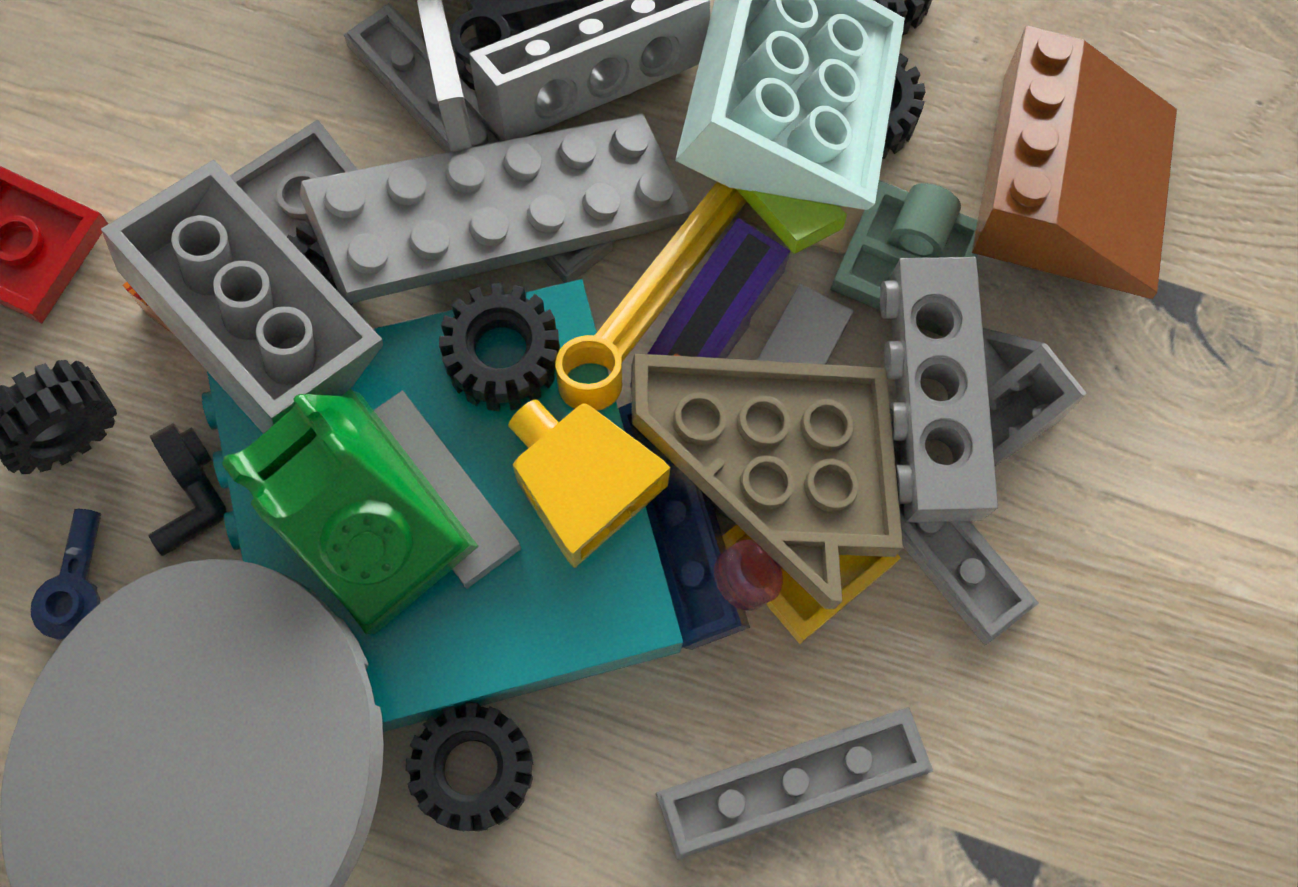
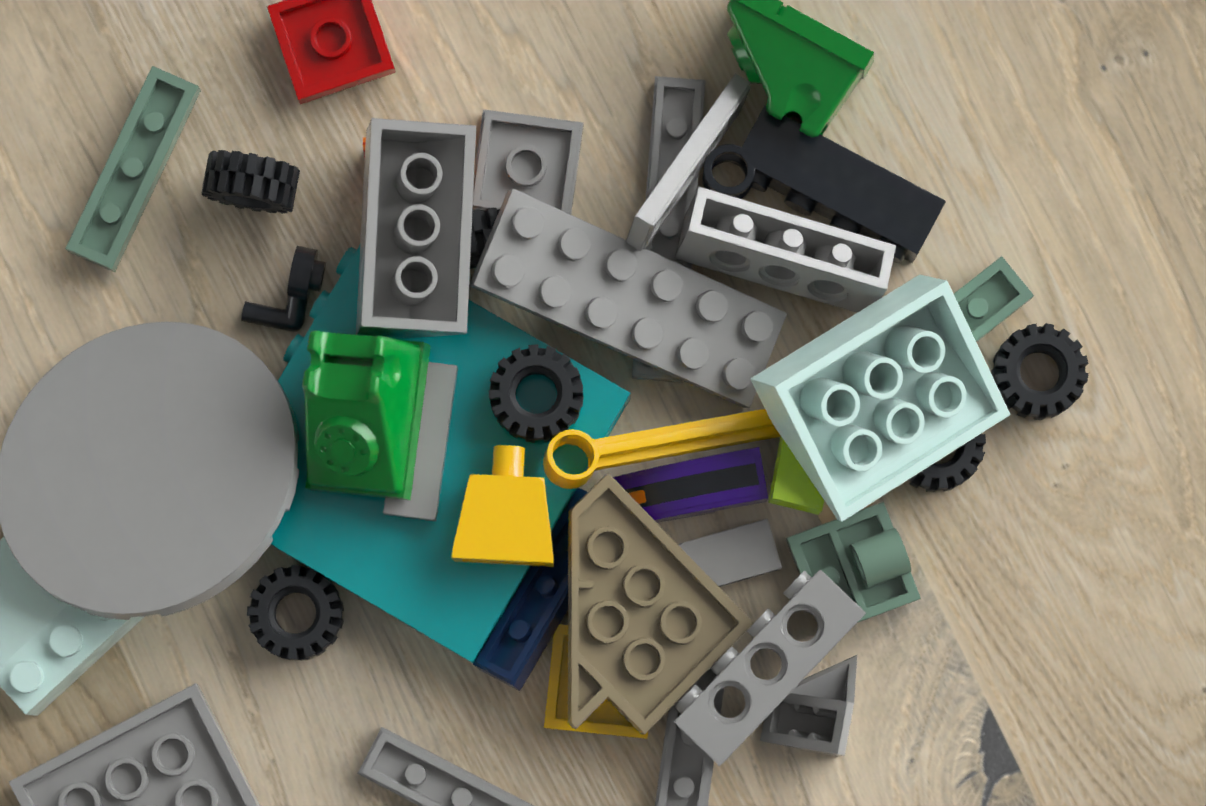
camera: 50 degrees right, 10 degrees up
(69, 596) = (169, 298): dark blue plate -> none
(747, 576) = (544, 662): clear pink tile -> none
(1077, 168) = (1017, 619): dark orange slope -> none

